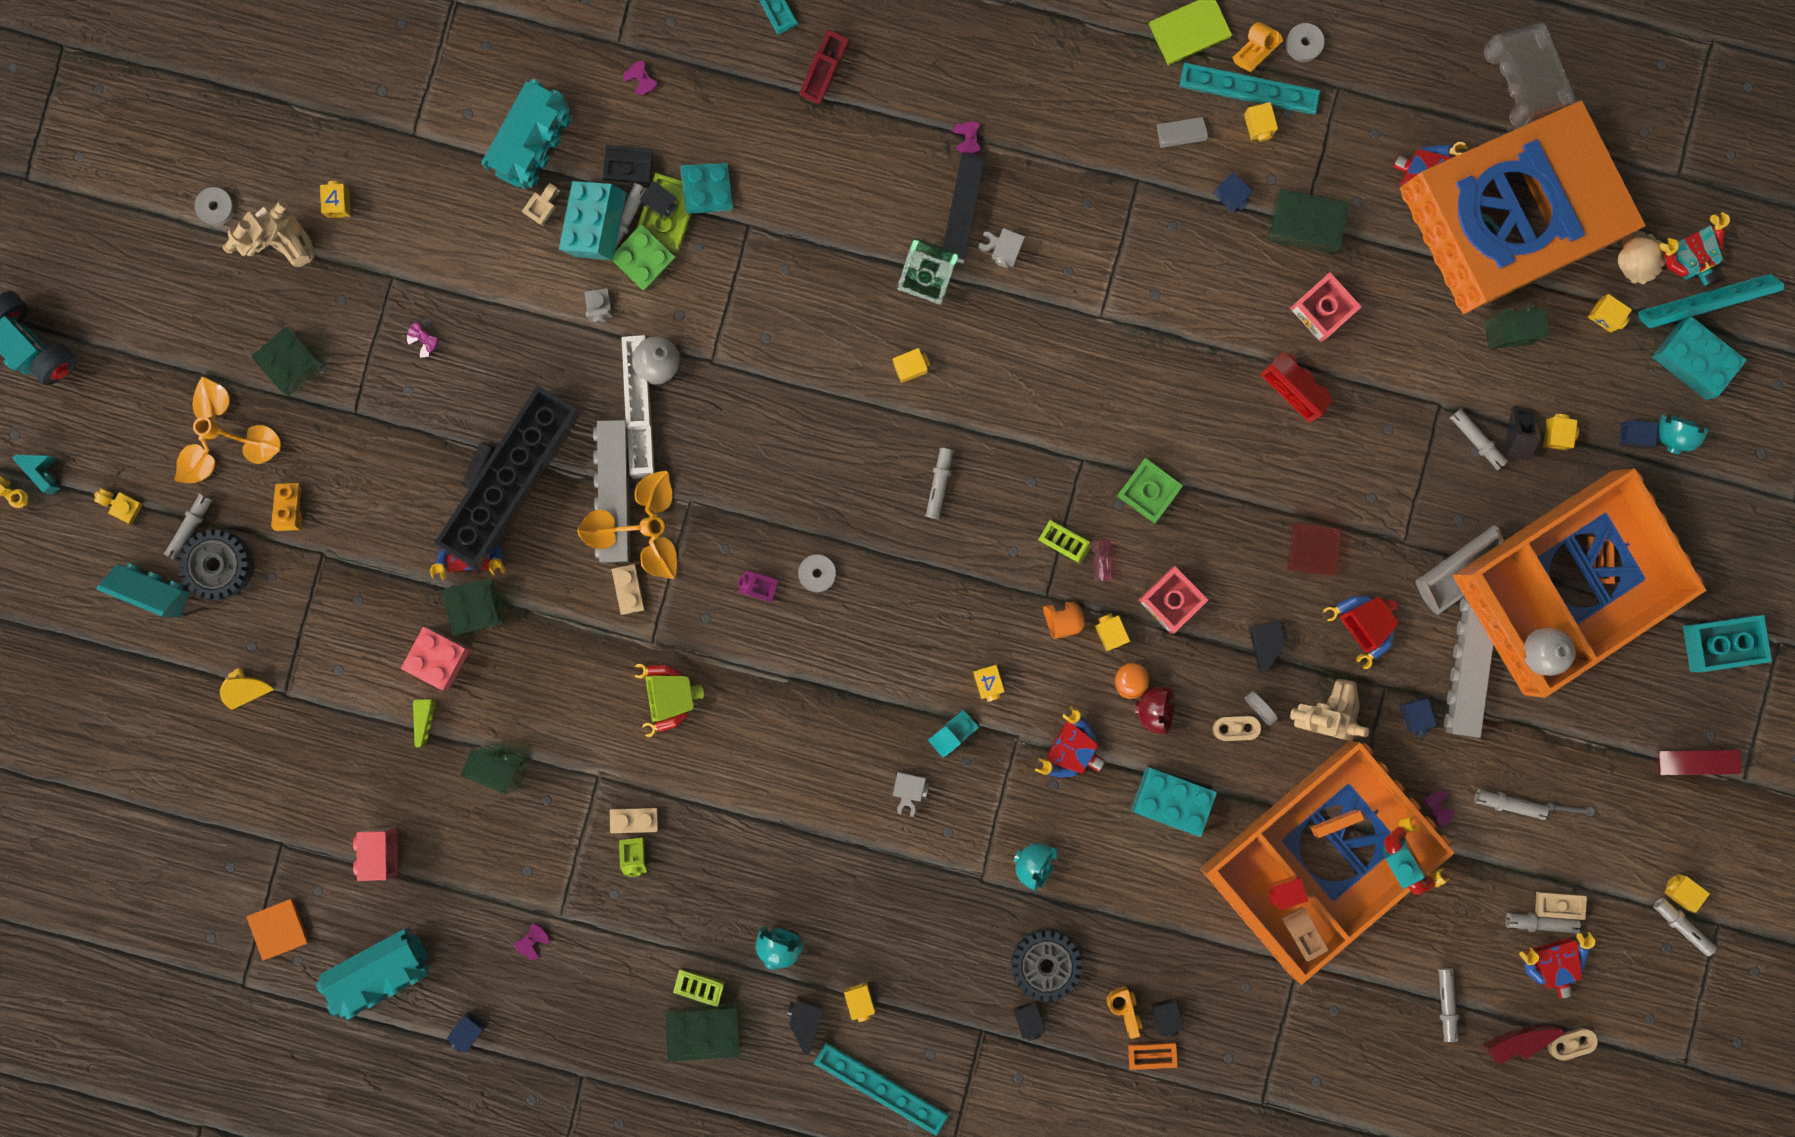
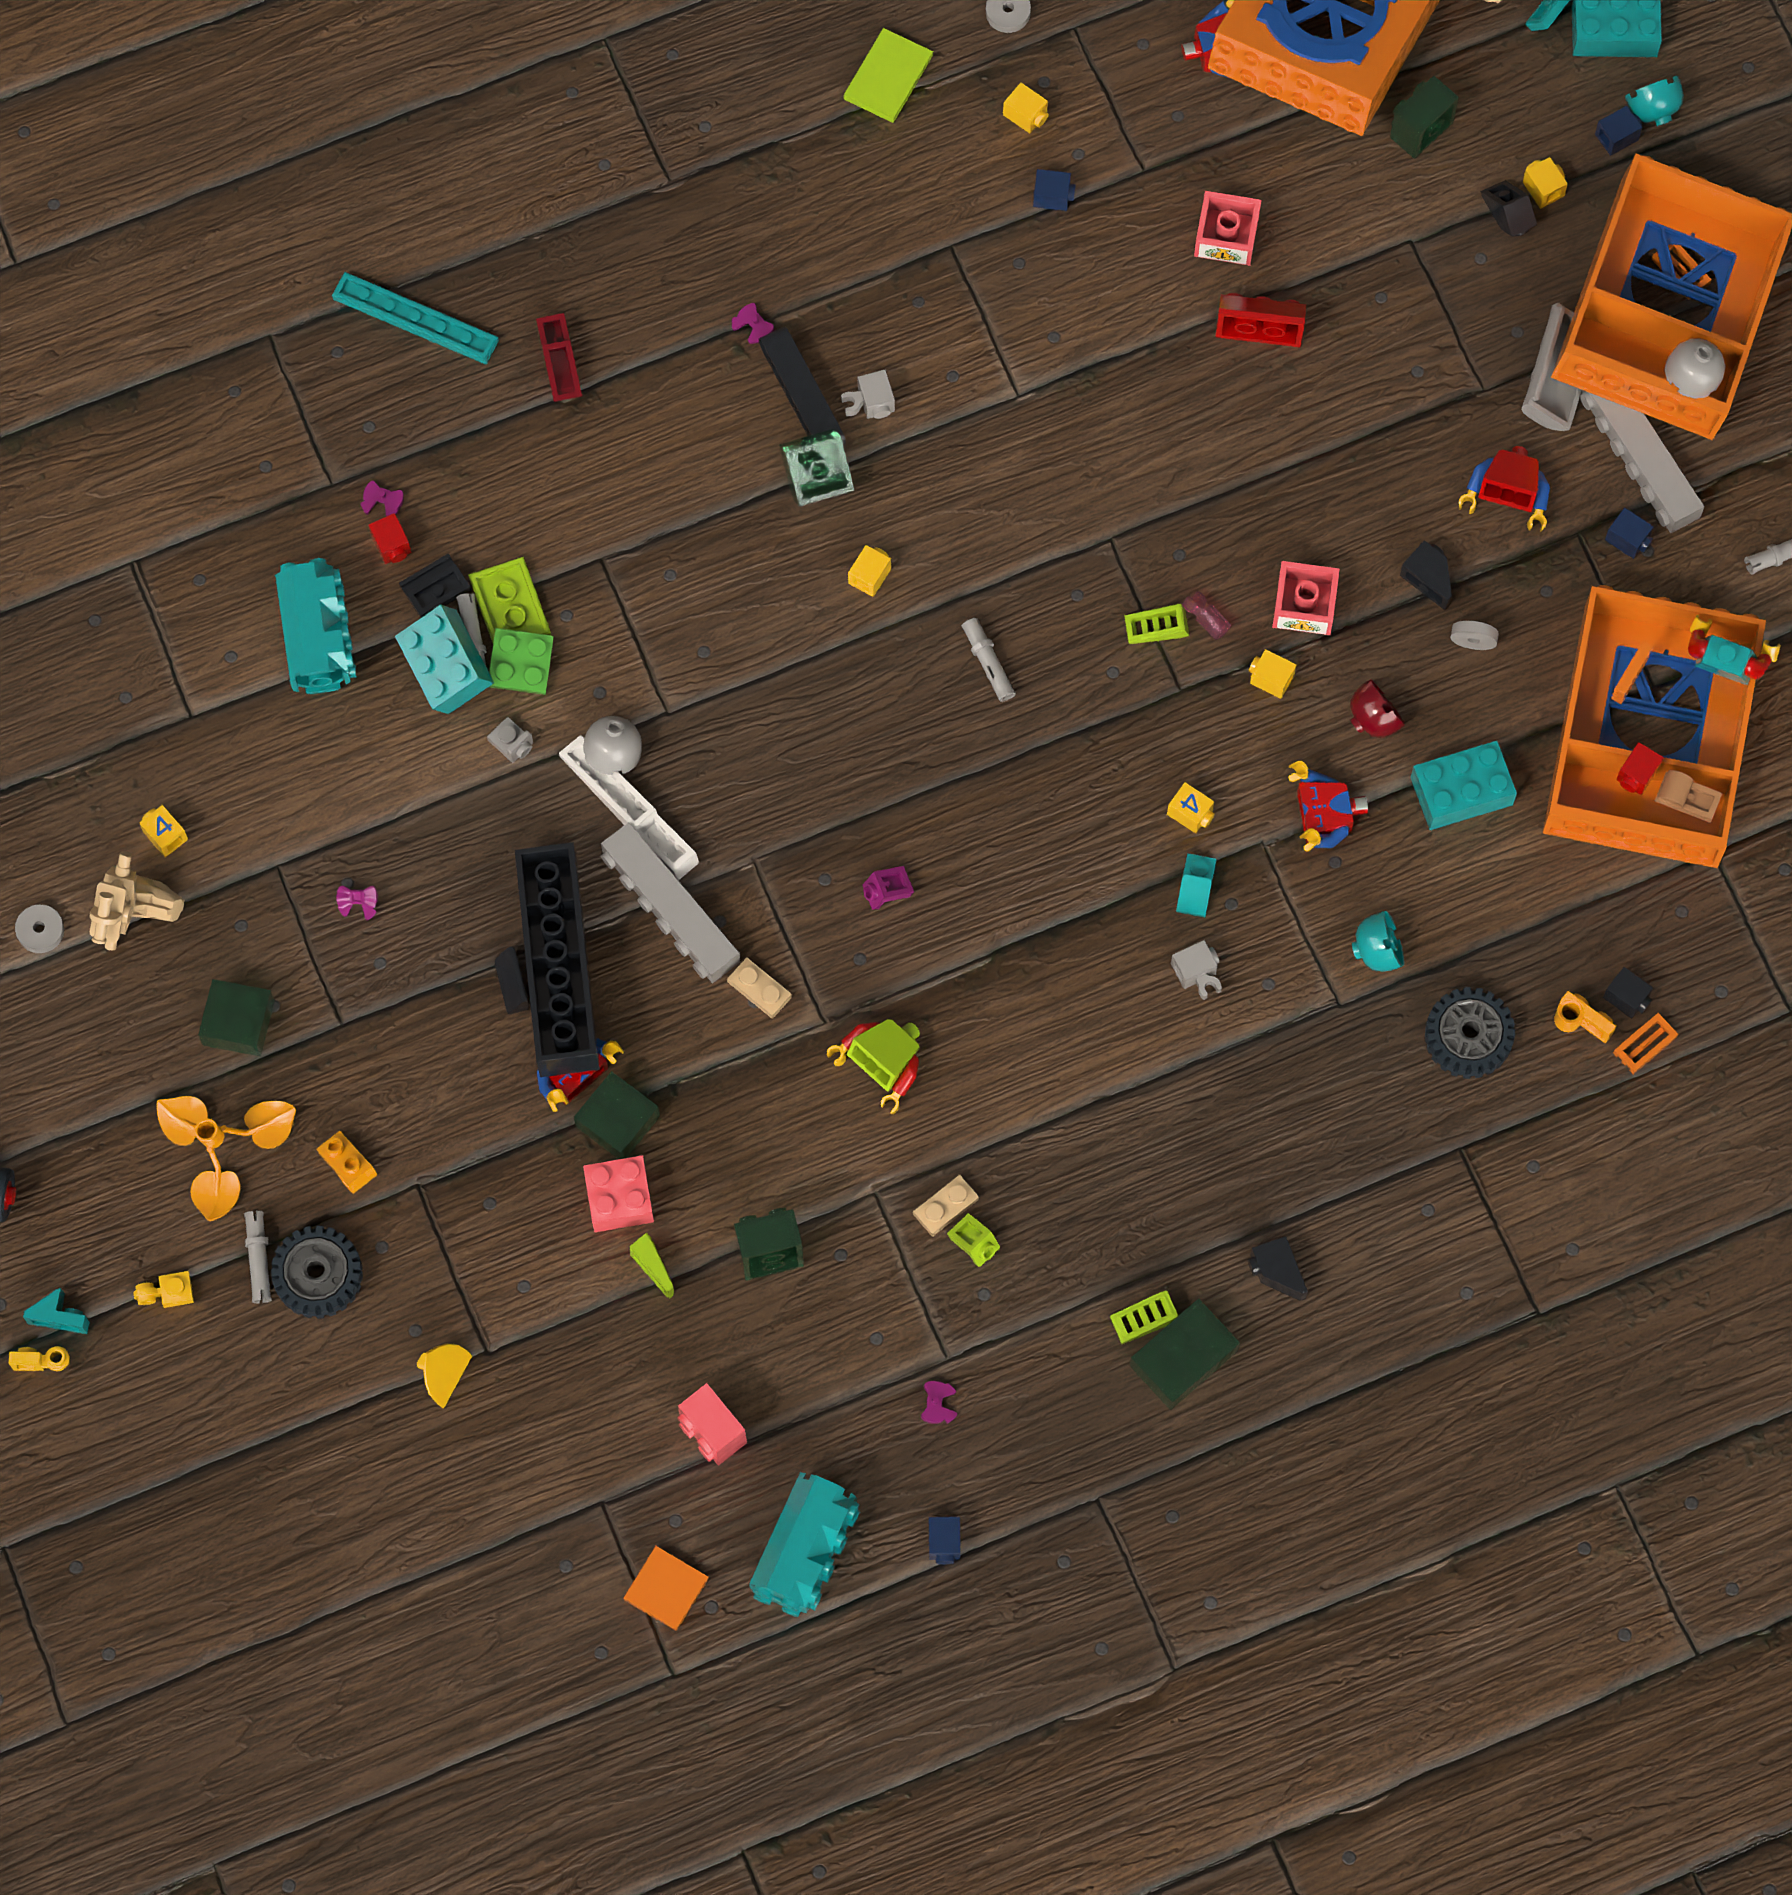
camera: 35 degrees left, 15 degrees down
(145, 590) = (265, 1348): teal slope -> none
(540, 207) = (378, 687): tan plate -> none
(623, 111) = (390, 539): none -> red brick
(656, 494) = (714, 874): light orange plant -> none
(660, 201) = (497, 593): black brick -> none
(706, 188) = (532, 551): teal plate -> none
(778, 947) = (1192, 1214): teal cylinder -> none
(806, 570) = (936, 846): light grey piece -> none
(859, 1002) = (1316, 1207): yellow brick -> none
(881, 1088) = (1406, 1279): teal tile -> none
(1029, 1021) = (1497, 1098): black brick -> none
(1064, 622) = (1221, 690): orange helmet -> none
(1131, 680) = (1328, 700): orange helmet -> none
(1149, 490) = (1199, 517): bright green plate -> none
(1182, 132) = (957, 172): light grey slope -> none
(1236, 728) = (1466, 675): tan plate -> none
(1249, 88) = (988, 88): teal tile -> none
(1261, 43) = (967, 37): light orange plate -> none
(1308, 221) = (1145, 164): clear green brick -> none
(1314, 549) = (1402, 456): clear red plate -> none
(1334, 718) = (1545, 590): tan piece -> none
(1442, 816) = (1713, 600): magenta piece -> none
(1478, 438) = (1474, 243): light grey pin -> none
(1610, 313) = (1500, 43): yellow brick -> none

